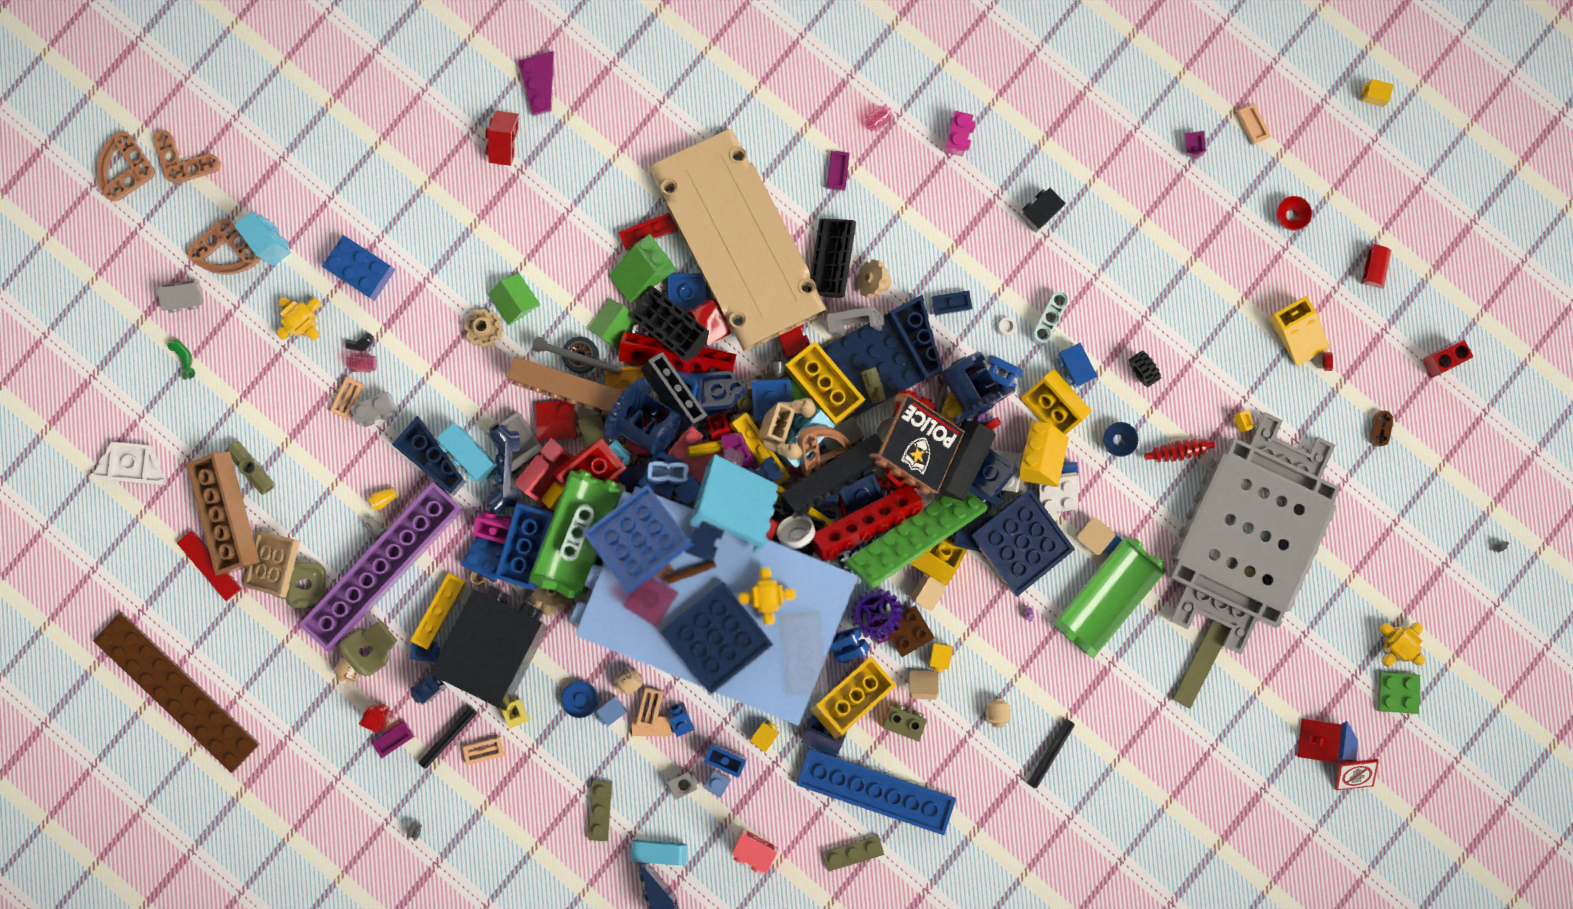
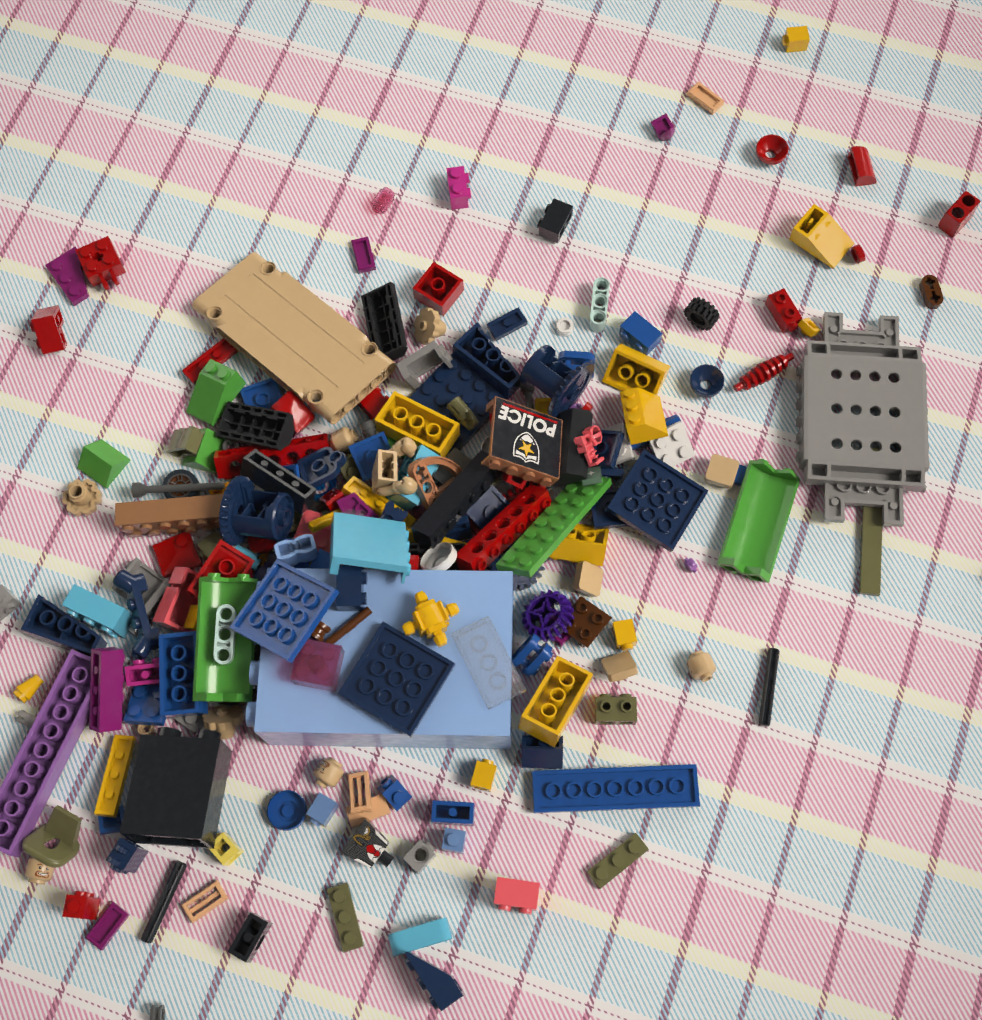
camera: 15 degrees left, 15 degrees down
(453, 532) = (106, 689): none -> magenta brick
(513, 798) = (250, 937): none -> black brick
(582, 89) = (101, 262): none -> red hinge
(598, 311) = (185, 442): none -> olive brick
(640, 758) = (368, 845): none -> torso
(749, 366) = (342, 439): none -> tan head
(898, 241) = (438, 289): none -> red brick
(972, 499) = (593, 476): none -> sand green tile
(985, 461) = (591, 437): none -> coral piece
(1227, 394) = (783, 310): none -> red brick

